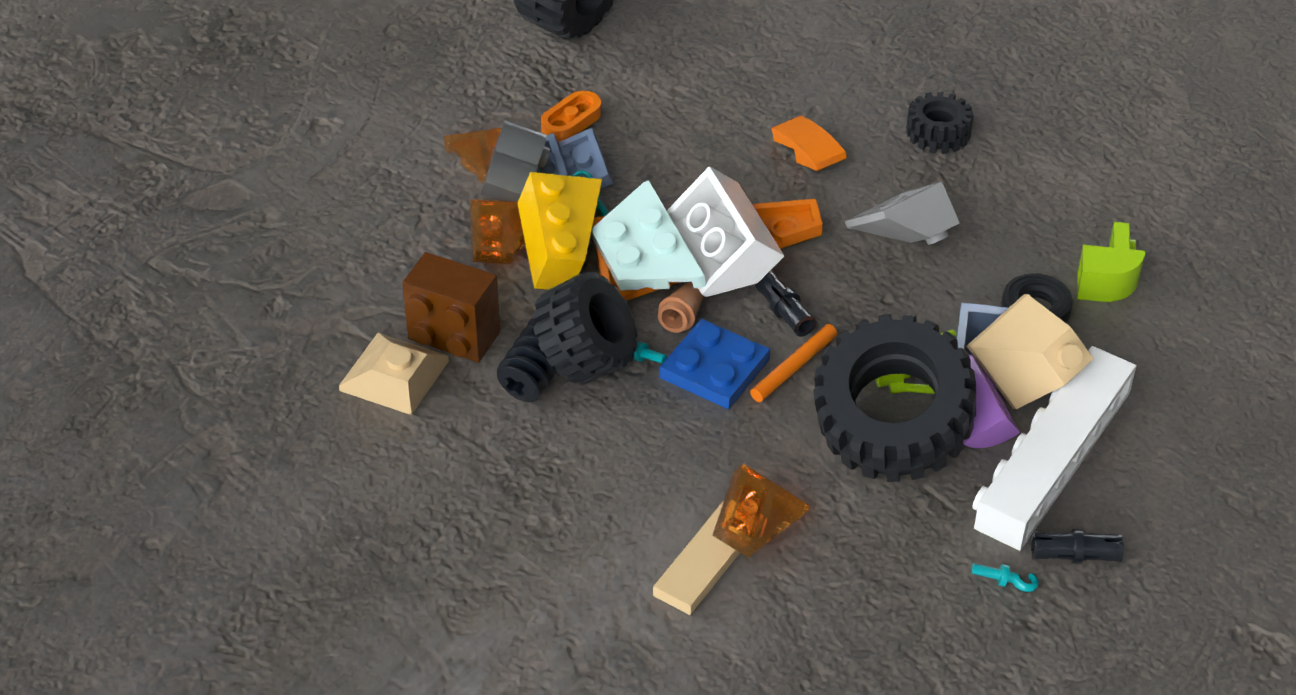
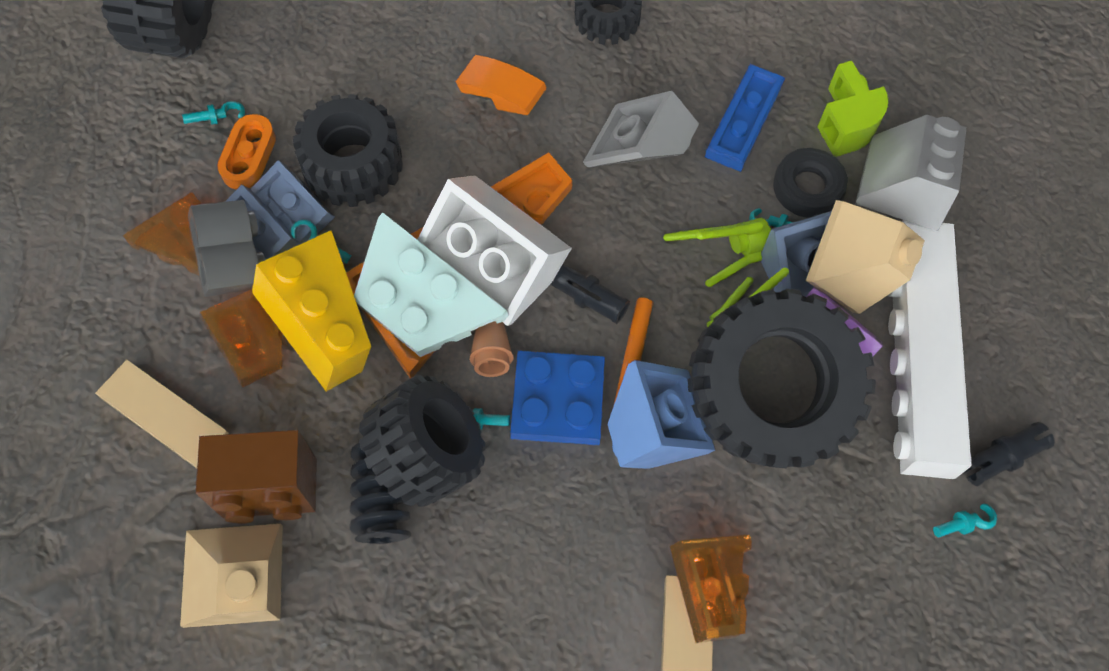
camera: 30 degrees left, 20 degrees up
(395, 245) = (158, 411): none -> tan tile
(560, 84) = (213, 114): none -> teal hand
(651, 139) = (345, 124): none -> black tyre
(779, 400) = (655, 418): none -> medium blue slope
(945, 311) = (744, 238): none -> lime plant
(1012, 240) = (745, 118): none -> blue tile
(1133, 320) = (914, 170): none -> light grey slope

